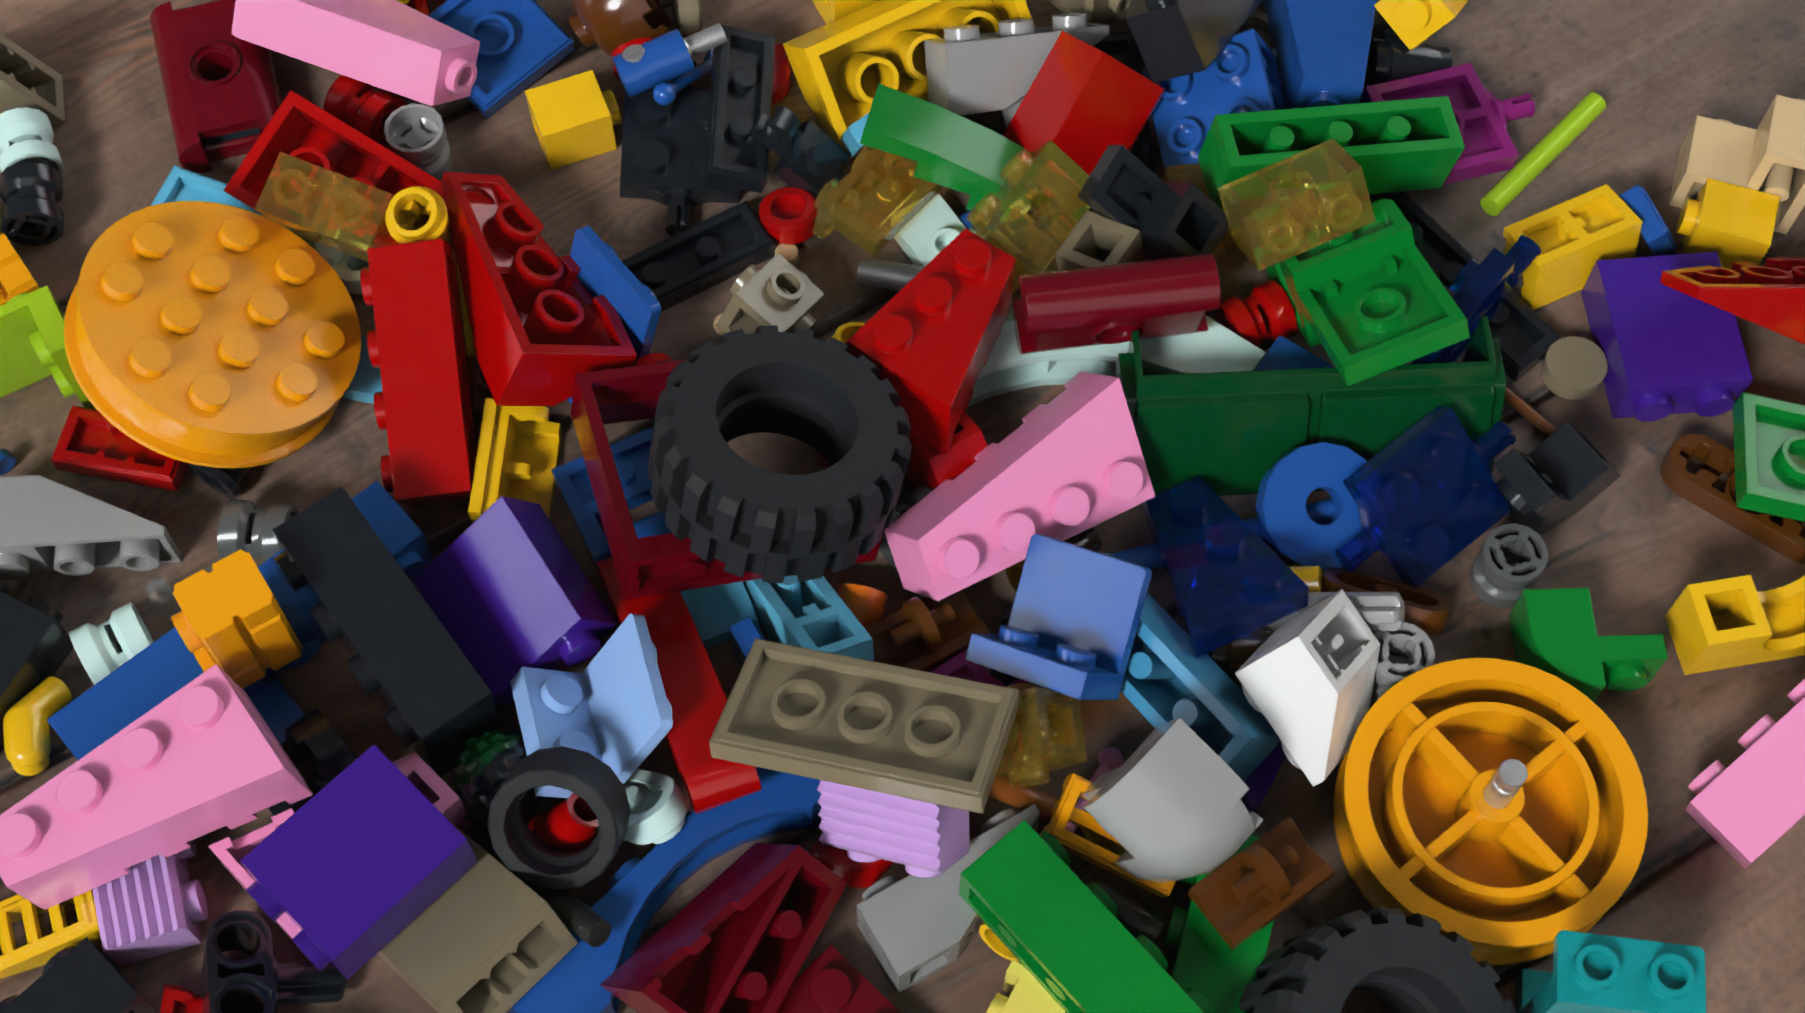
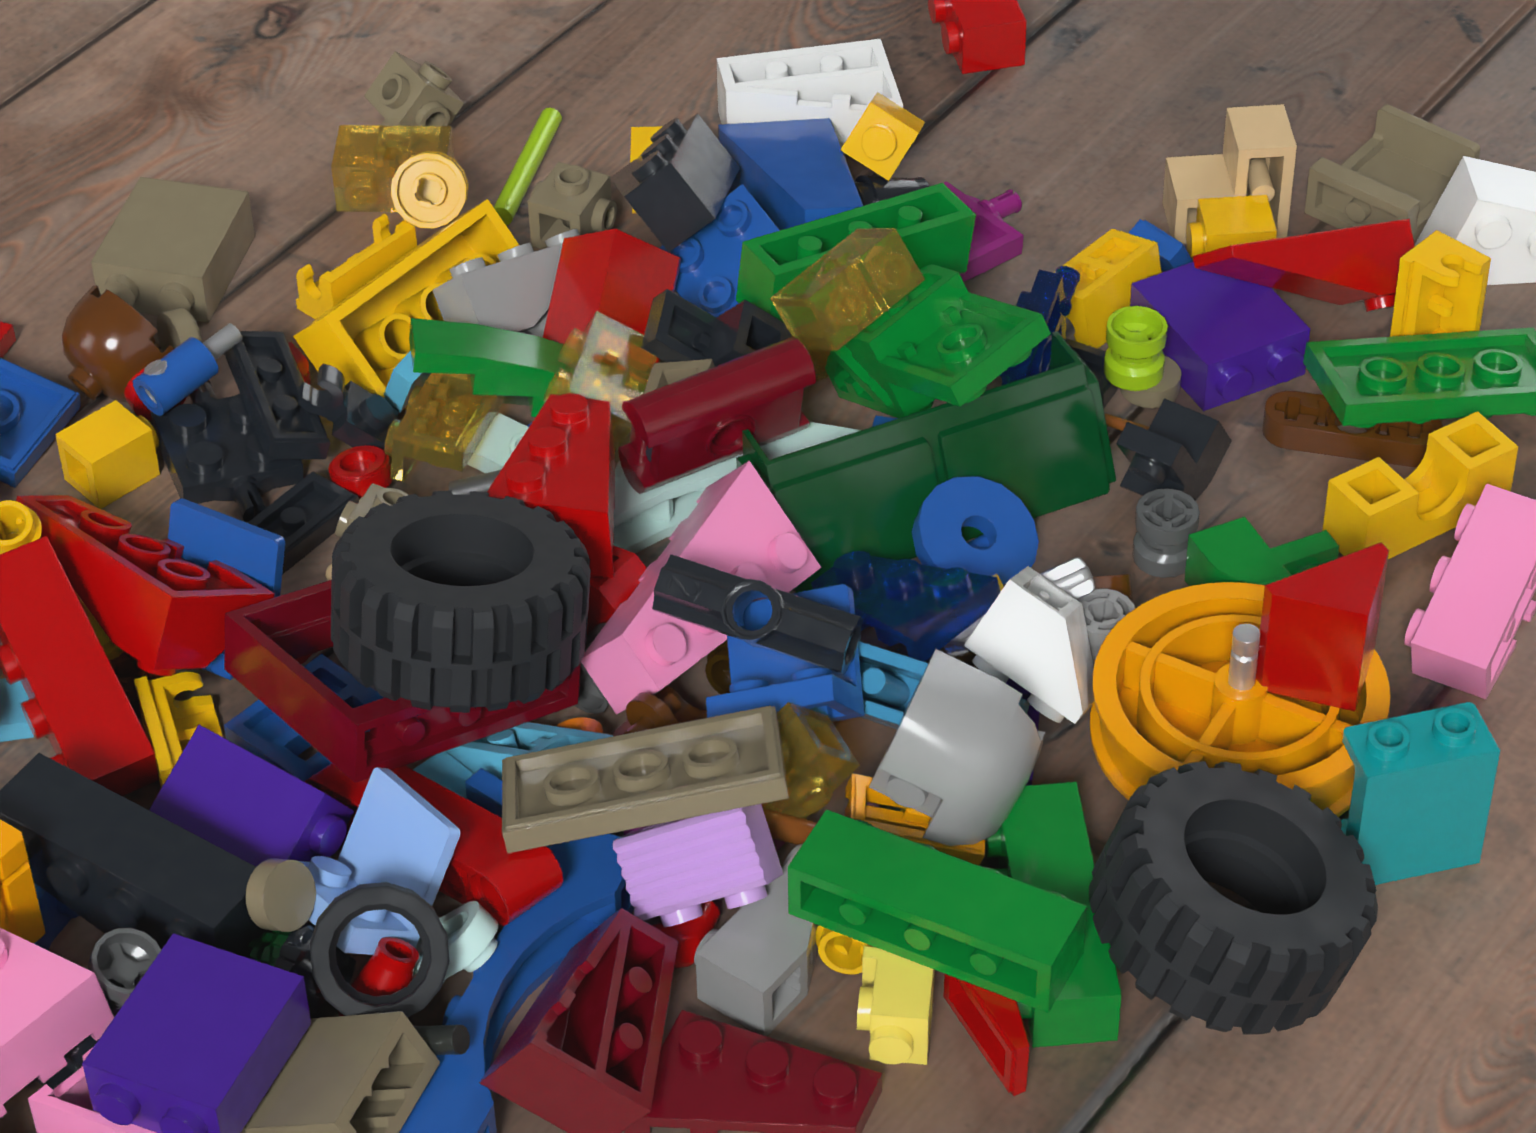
camera: 20 degrees left, 20 degrees down
(337, 748) = (123, 959): none -> dark grey wheel
(498, 718) = (280, 895): none -> dark tan tile
(665, 93) = (198, 398): blue hinge -> none
(1080, 601) = (795, 627): none -> black piece
(1260, 315) = (851, 407): red wheel -> none
(1260, 883) = (1062, 801): reddish brown hips -> none
(1426, 496) = (1066, 494): clear blue plate -> none
(1543, 154) = (1043, 235): lime bar -> none
(1568, 339) = (1135, 348): none -> lime wheel
(1596, 794) = (1323, 629): none -> red slope

